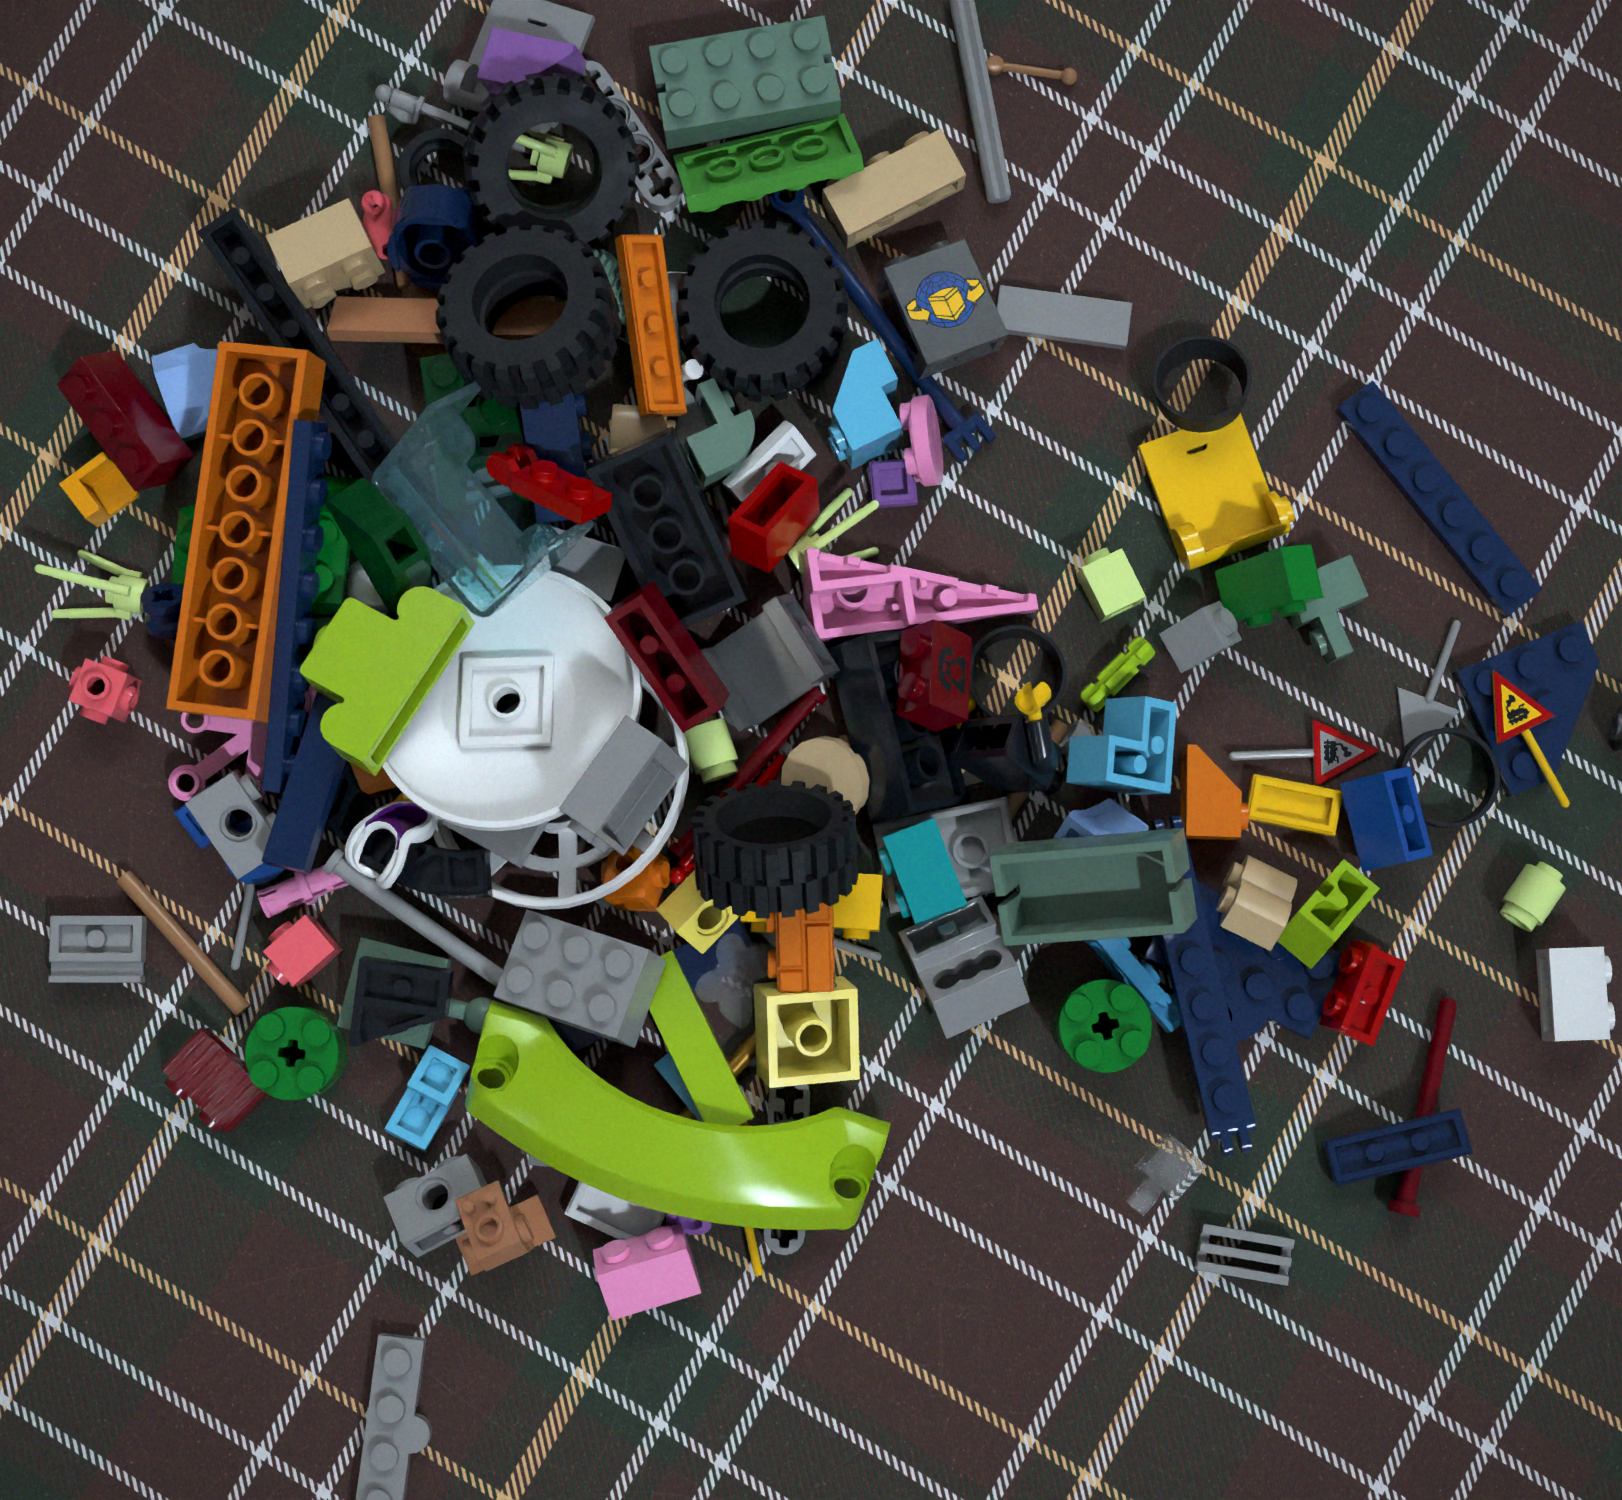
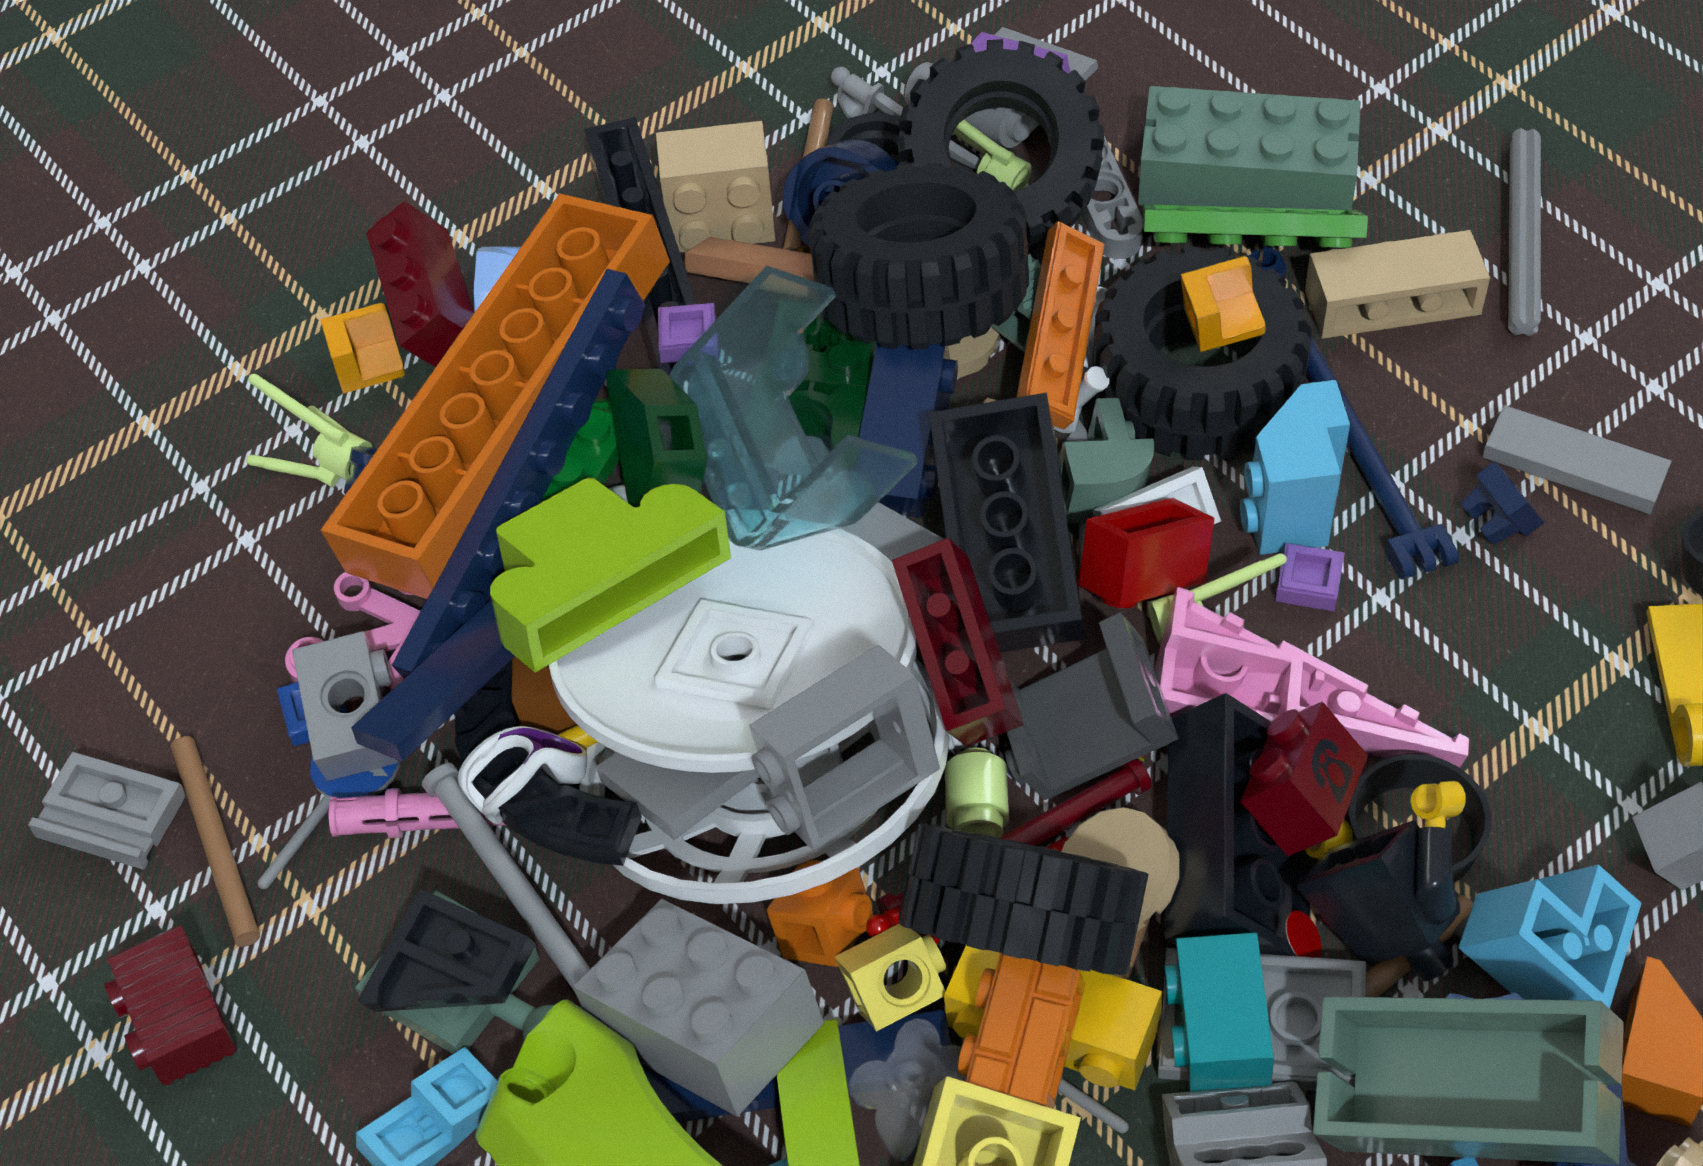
camera: 25 degrees right, 30 degrees down
(118, 697) = (264, 535): coral brick -> none
(277, 1072) = (286, 997): green brick -> none
(300, 951) = (352, 883): coral brick -> none
(365, 426) = (681, 327): none -> medium lavender tile
(377, 220) = (784, 162): coral arm -> none
(548, 485) = (876, 418): red hinge -> none
(776, 292) = (1222, 304): none -> light orange panel
(925, 455) = (1364, 523): bright pink tile -> none
(944, 306) = (1429, 404): dark grey panel -> none
(960, 786) = (1303, 935): none -> red sticker
(996, 65) = (1552, 210): medium nougat hinge -> none
(1021, 377) = (1510, 507): none -> dark blue tile
(1110, 583) = (1575, 751): yellowish green brick -> none
(1117, 674) = (1596, 844): lime axle -> none

